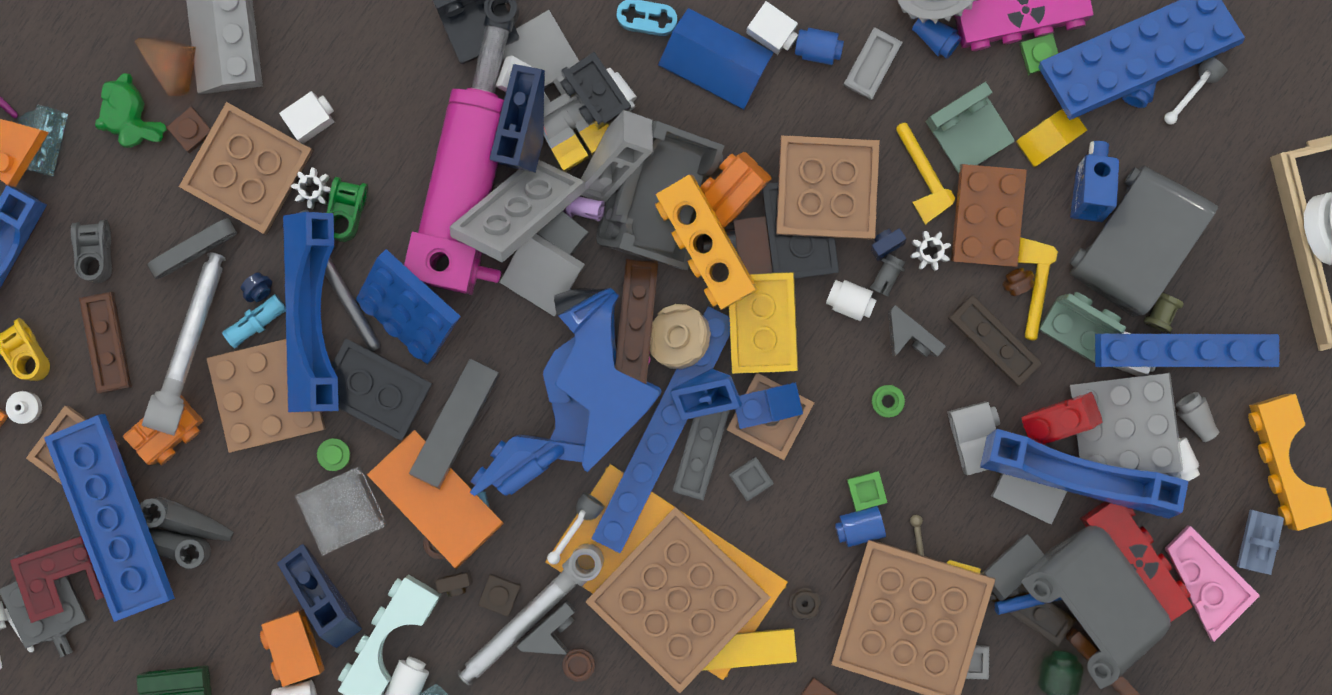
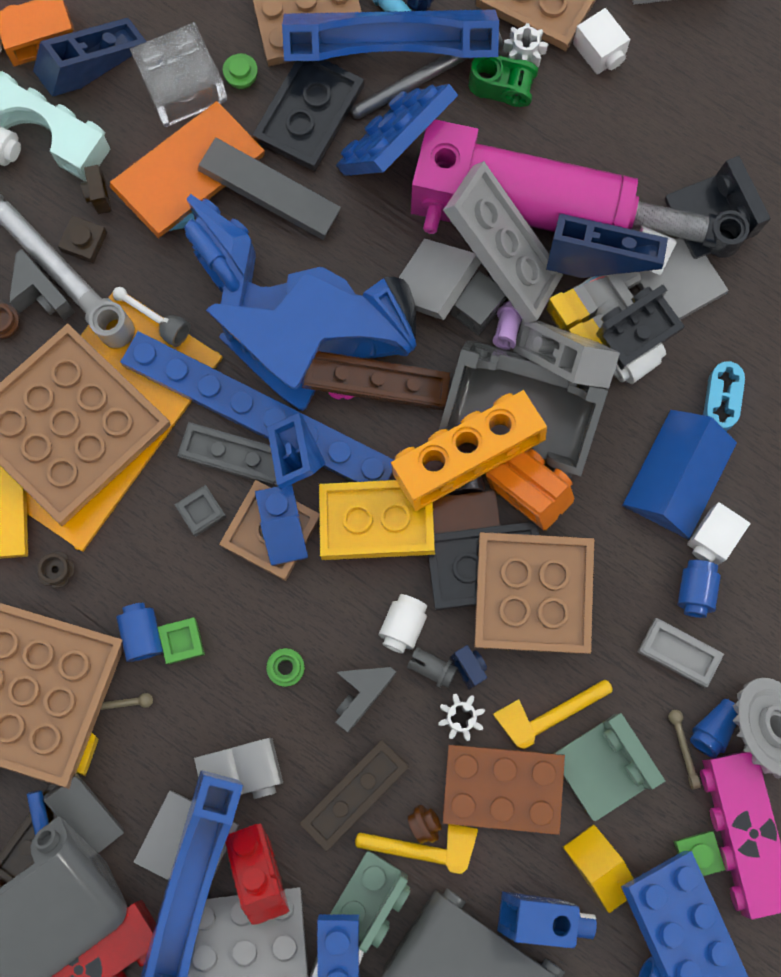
camera: 90 degrees right, 10 degrees down
(679, 336) = (362, 428): tan tile -> none
(927, 69) = (676, 718): none -> dark tan hinge

